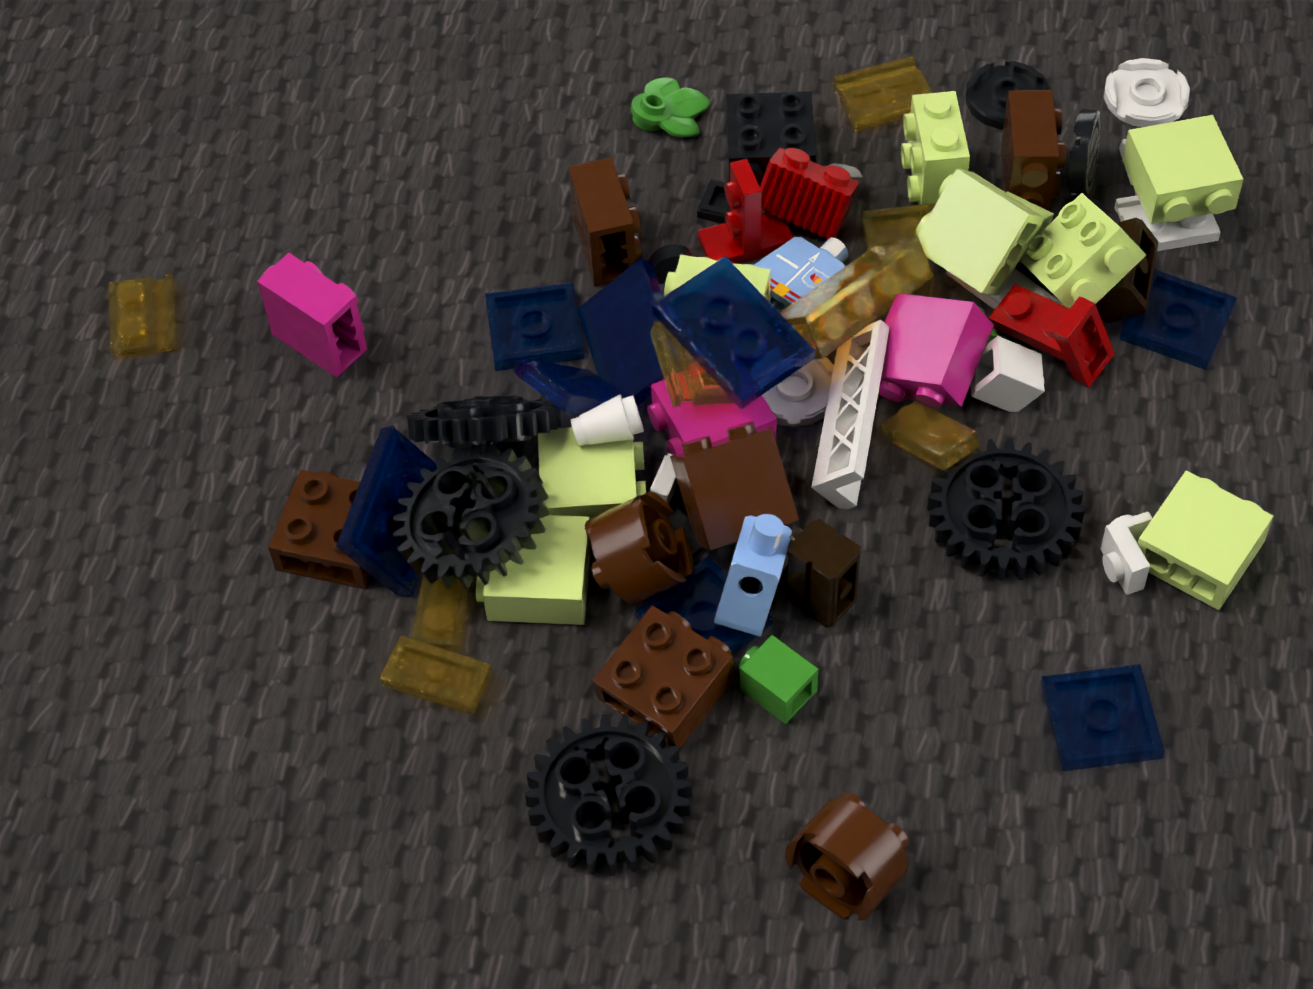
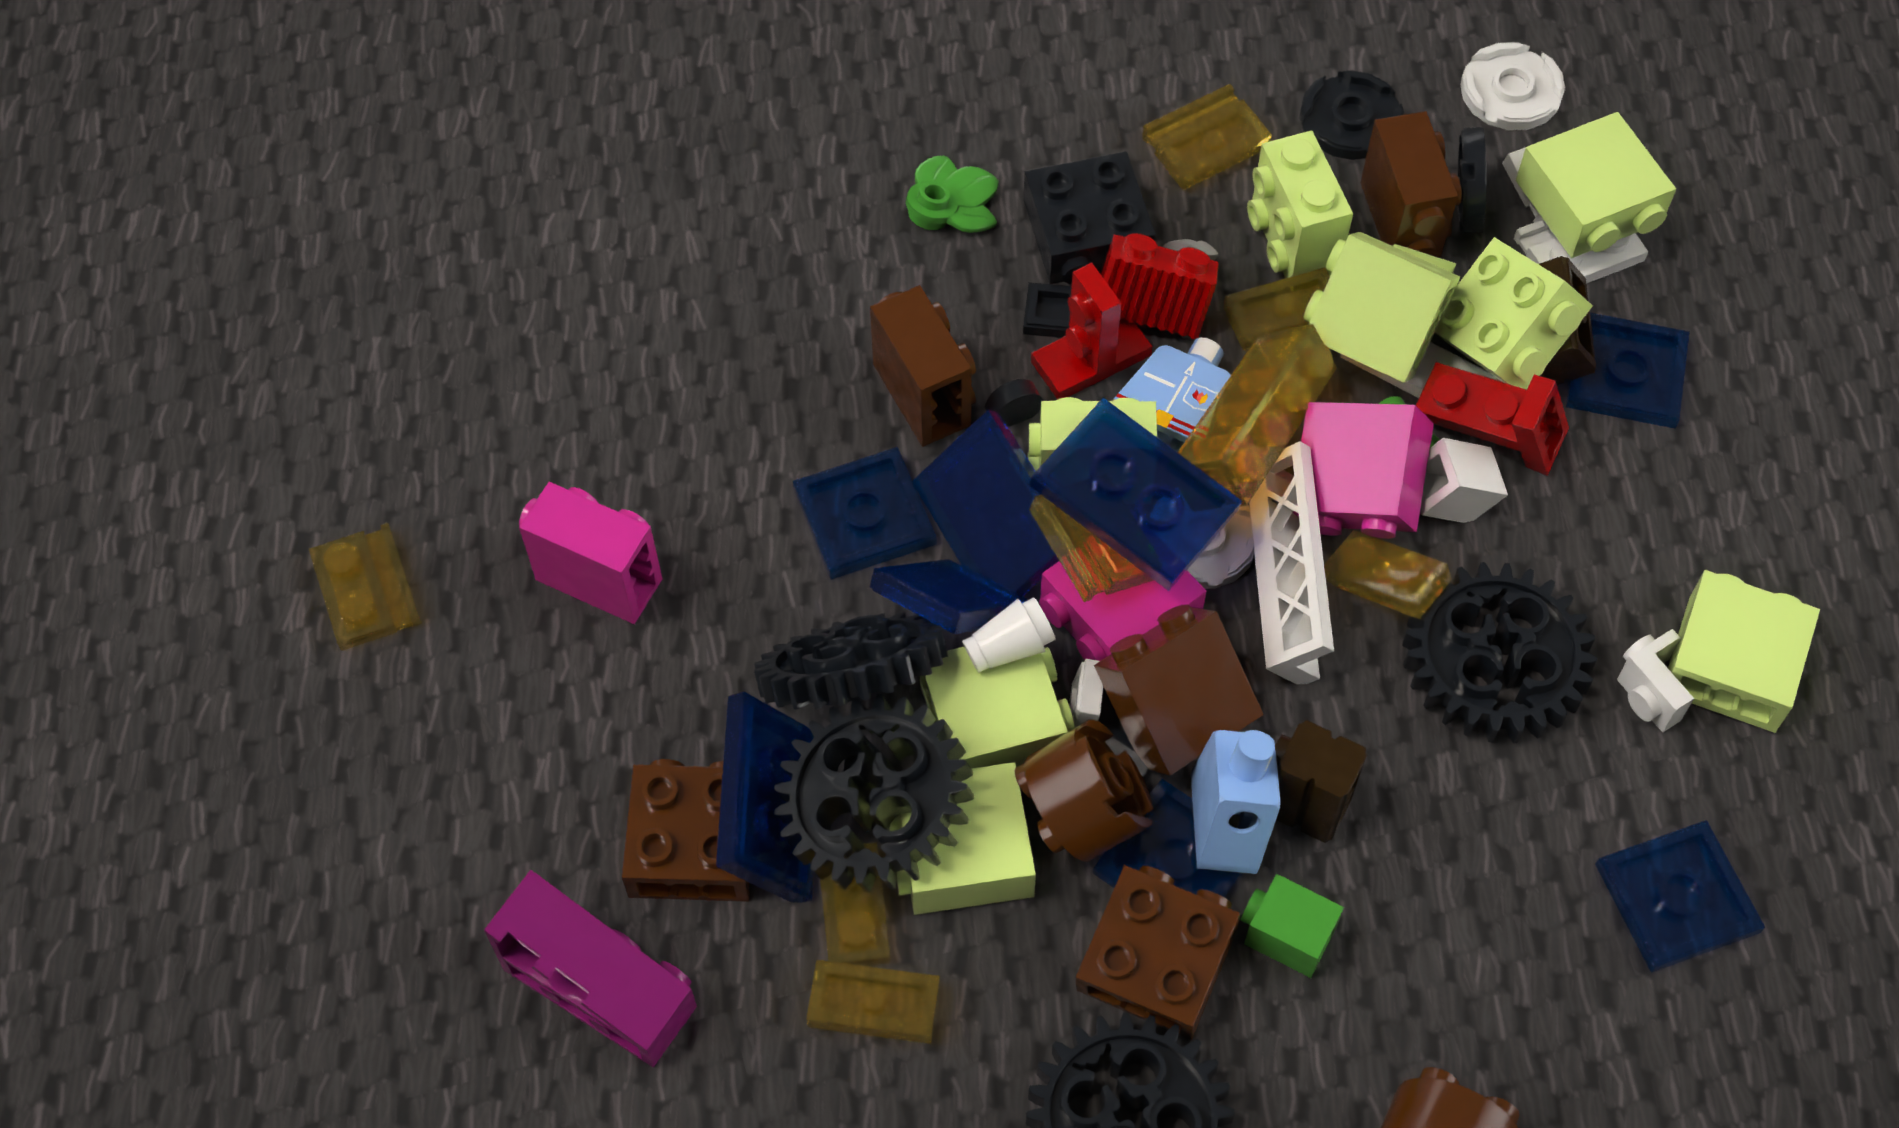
camera: 15 degrees left, 5 degrees up
(226, 607) = (590, 969): none -> magenta wedge

